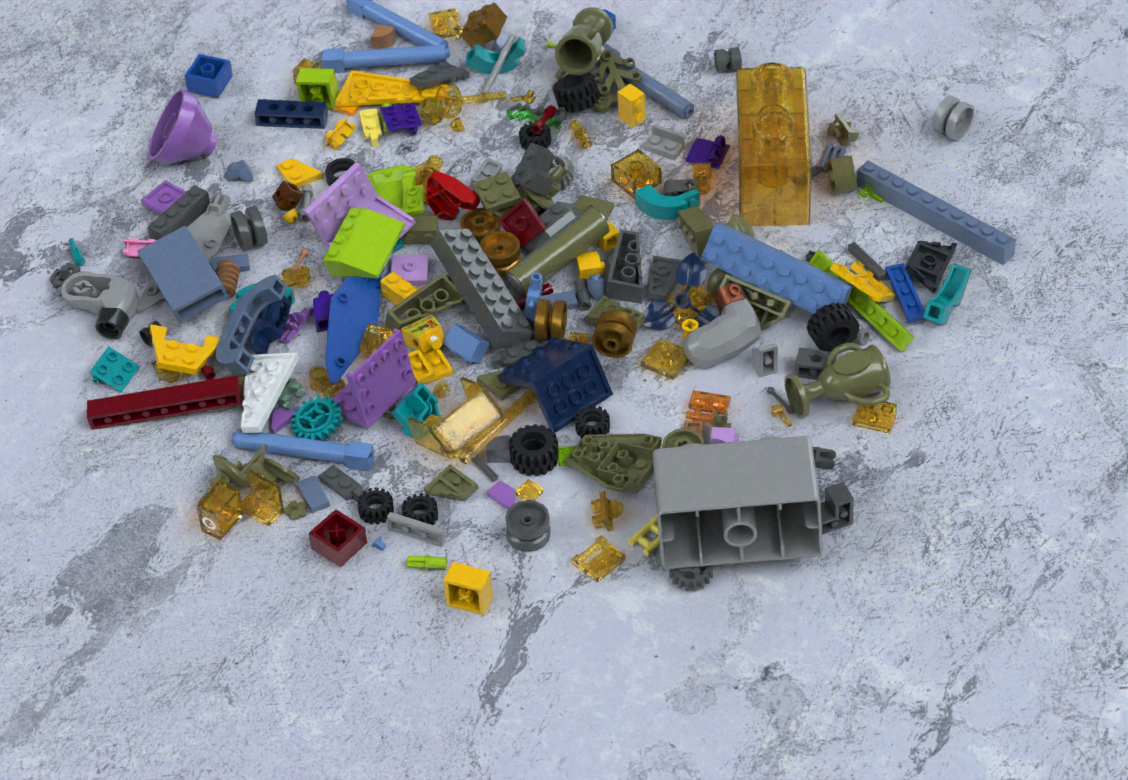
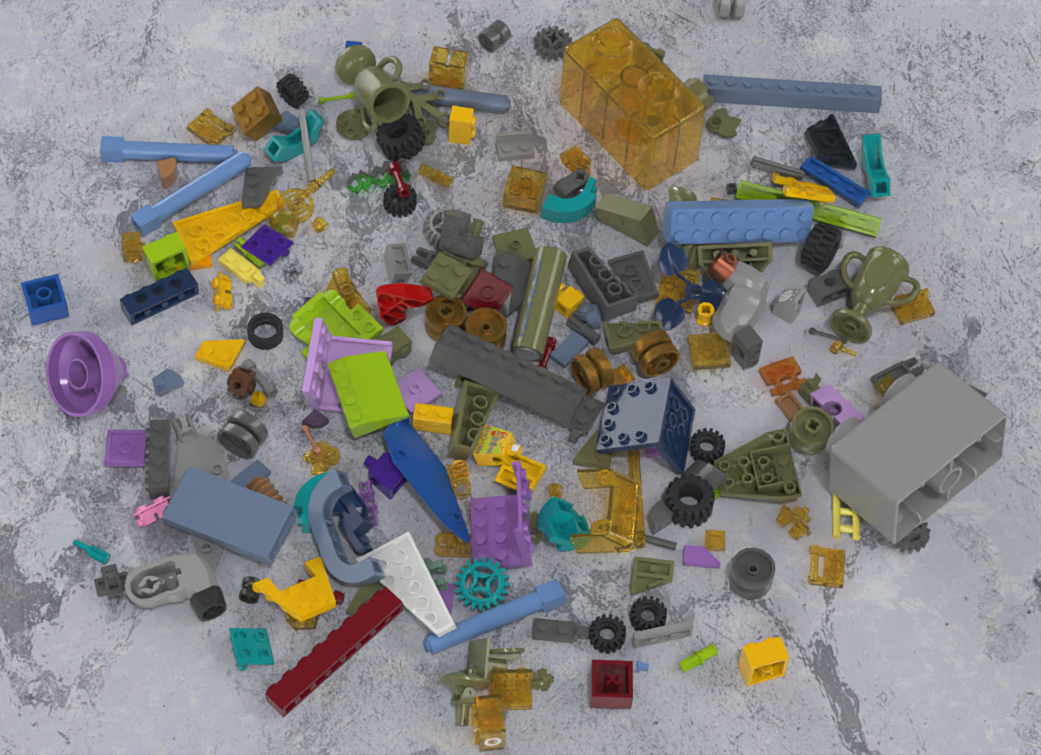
camera: 45 degrees left, 10 degrees up
(313, 494) = (542, 656): sand blue tile -> none
(317, 251) = (315, 420): none -> clear purple tile
(466, 343) = (539, 435): medium blue brick -> none
(527, 98) = (355, 164): clear yellow hand -> none
(528, 24) = (292, 90): none -> black tyre
(533, 296) = (566, 358): medium blue torso -> none
(548, 70) = (350, 124): none -> olive dish
(567, 440) = (706, 471): none -> dark grey slope
(663, 64) = (449, 75): none -> clear yellow piece
(694, 367) = (746, 347): none -> dark grey brick
(708, 151) = (558, 135): dark purple hinge -> none
(855, 207) = (722, 123): none -> olive plate
(868, 188) = (719, 102): clear neon green hand -> none

